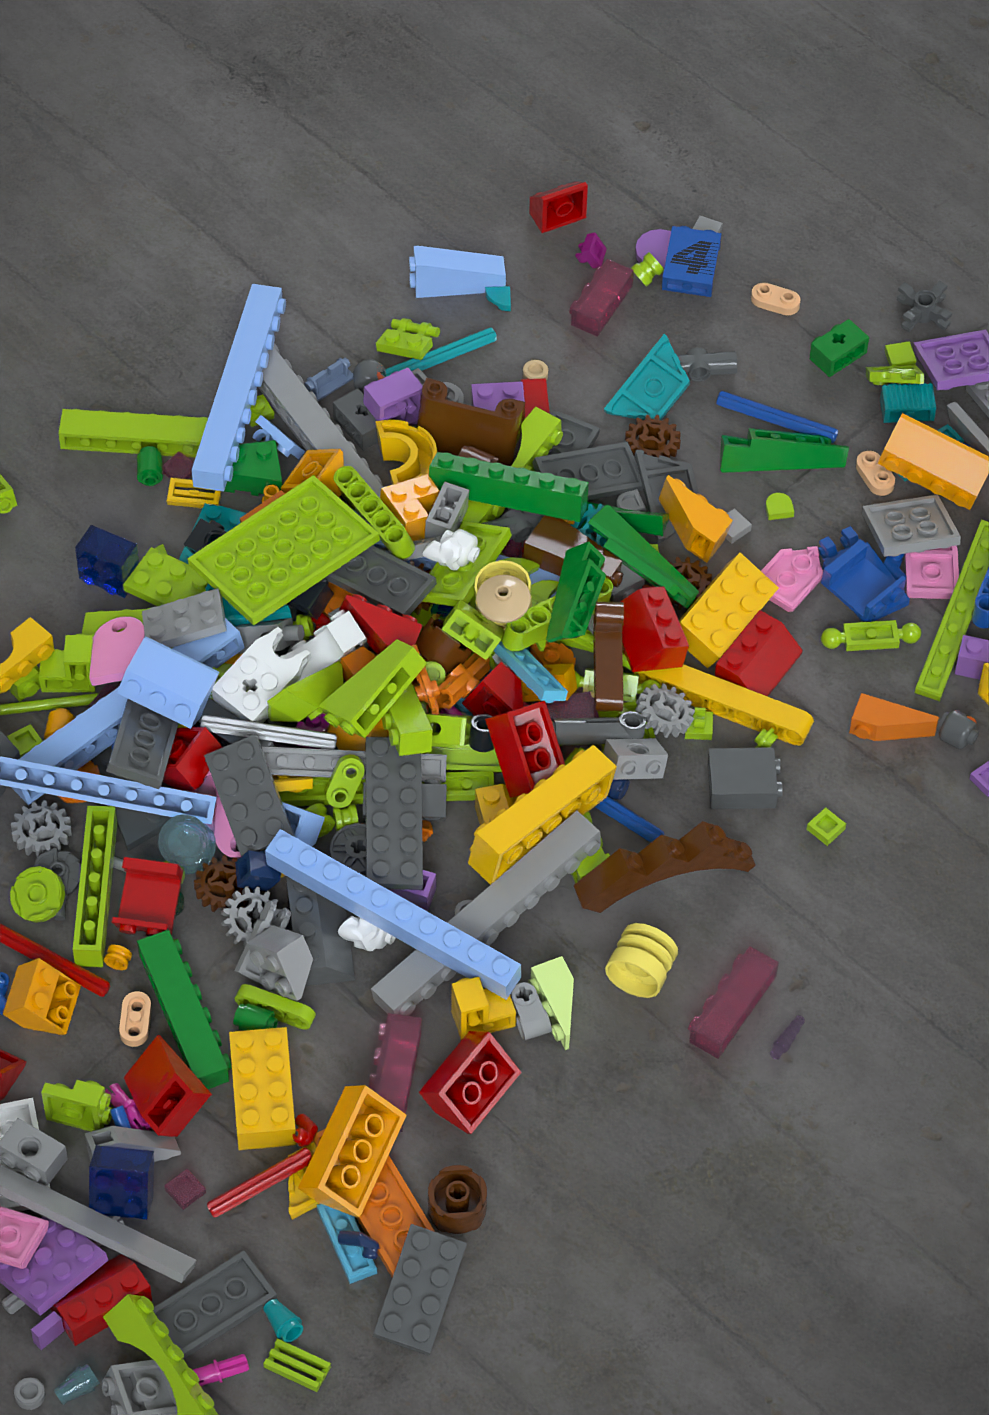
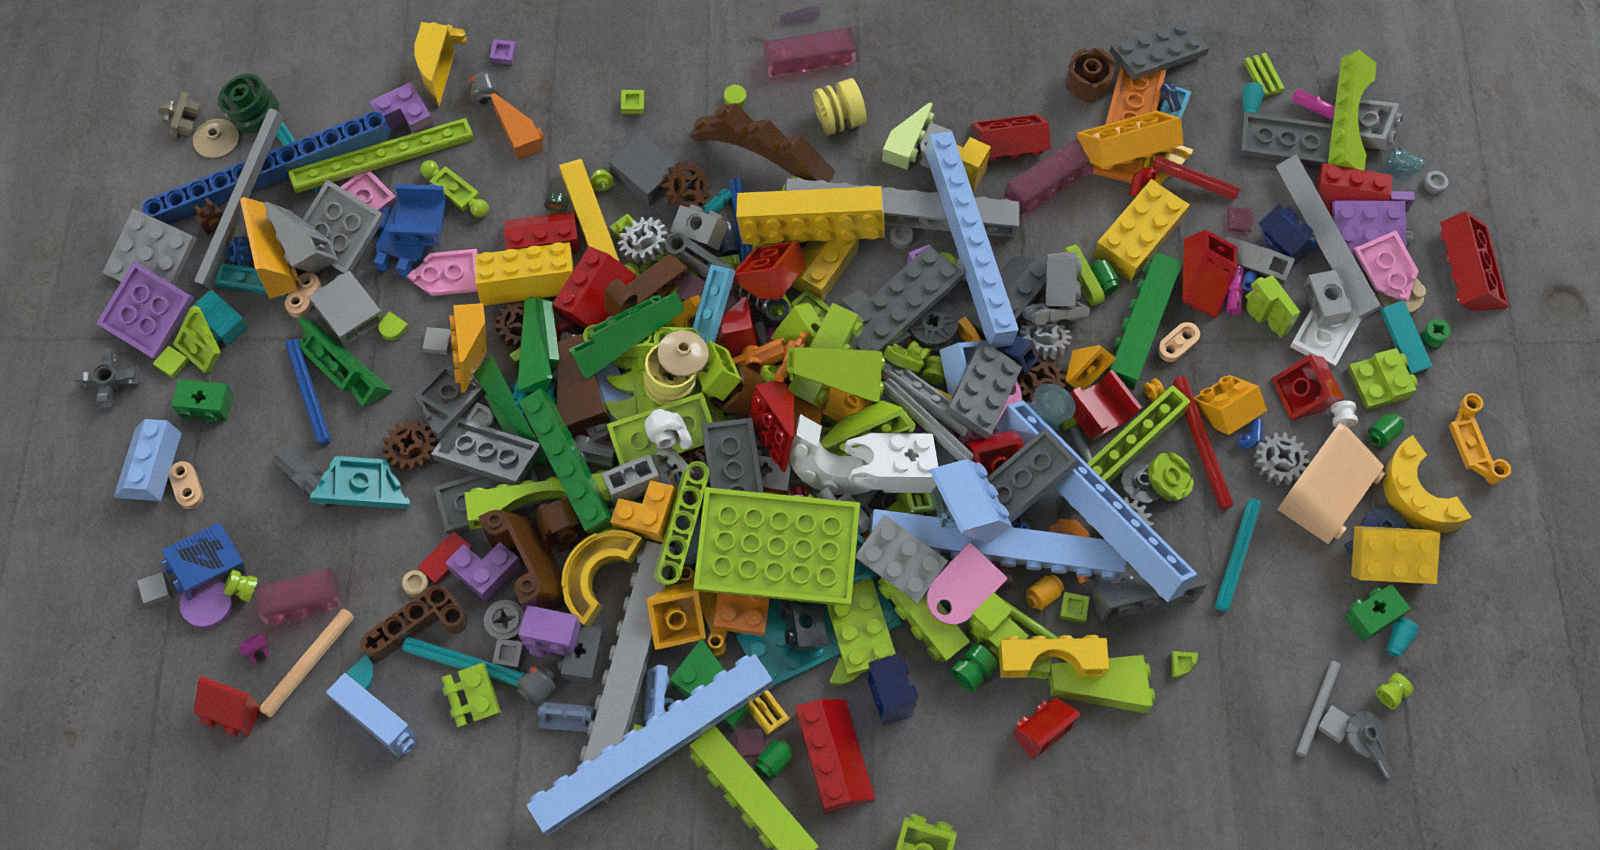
camera: 135 degrees left, 10 degrees up
(61, 622) = (975, 666): none -> green wheel
(109, 500) = (834, 754): none -> red slope
(194, 924) = (1087, 365): none -> light orange slope
(501, 364) = (412, 627): none -> reddish brown beam
(545, 273) = (306, 663): none -> light nougat axle
(652, 801) = (717, 202): none -> teal axle
(688, 787) = (677, 181): none -> reddish brown gear
(750, 911) = (735, 94): none -> lime tile
(778, 690) = (556, 203): none -> clear green tile
(815, 283) = (148, 461): none -> light blue slope
(827, 485) = (346, 308): none -> light grey brick
(920, 480) = (302, 243): none -> light grey slope

